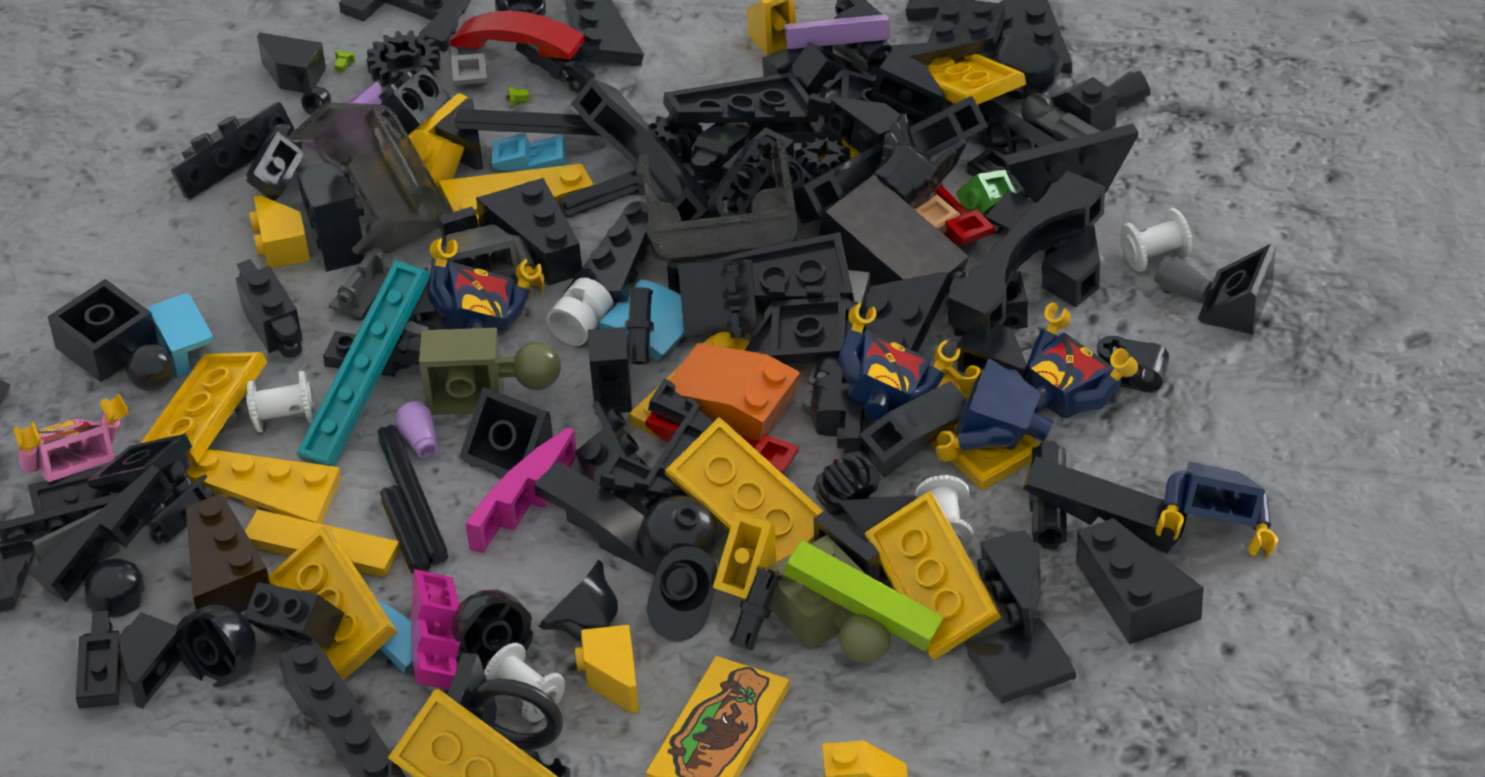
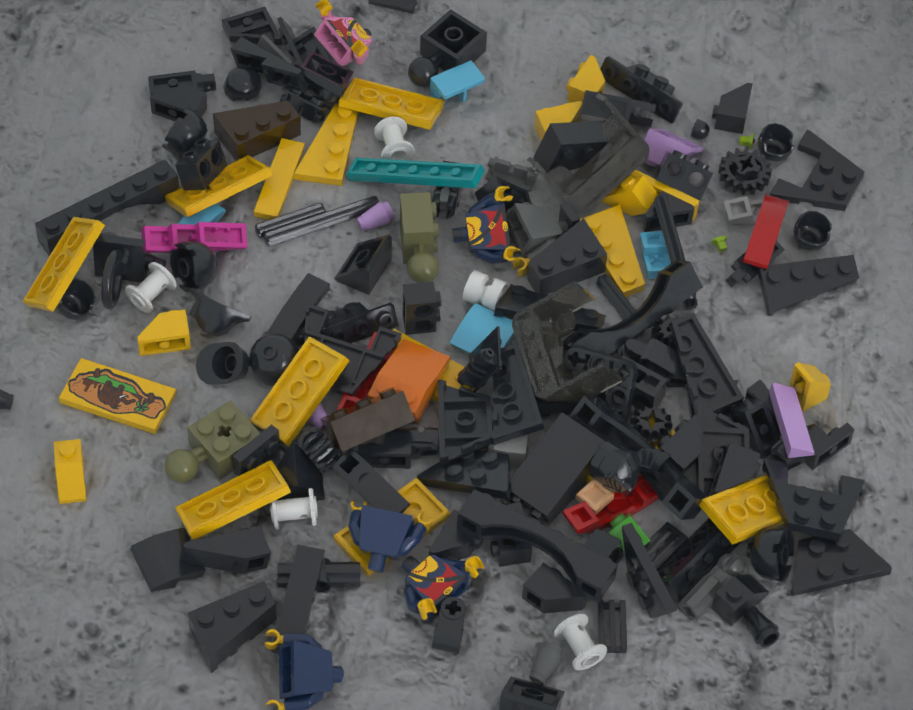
camera: 80 degrees right, 10 degrees up
(212, 199) = (588, 78): none -> yellow slope
(269, 309) = (480, 125): black hinge -> none
(361, 30) = (775, 142): none -> black hair
(515, 491) = (341, 285): dark pink slope -> none
(639, 325) = (461, 320): black pin -> none
(747, 546) = (241, 390): yellow slope -> none
(755, 608) = (203, 401): black pin -> none
(813, 417) = (367, 419): none -> dark brown wedge
(862, 594) = (199, 453): lime slope -> none
(884, 372) = (412, 461): torso -> none
(1116, 216) = (612, 606): none -> black tile

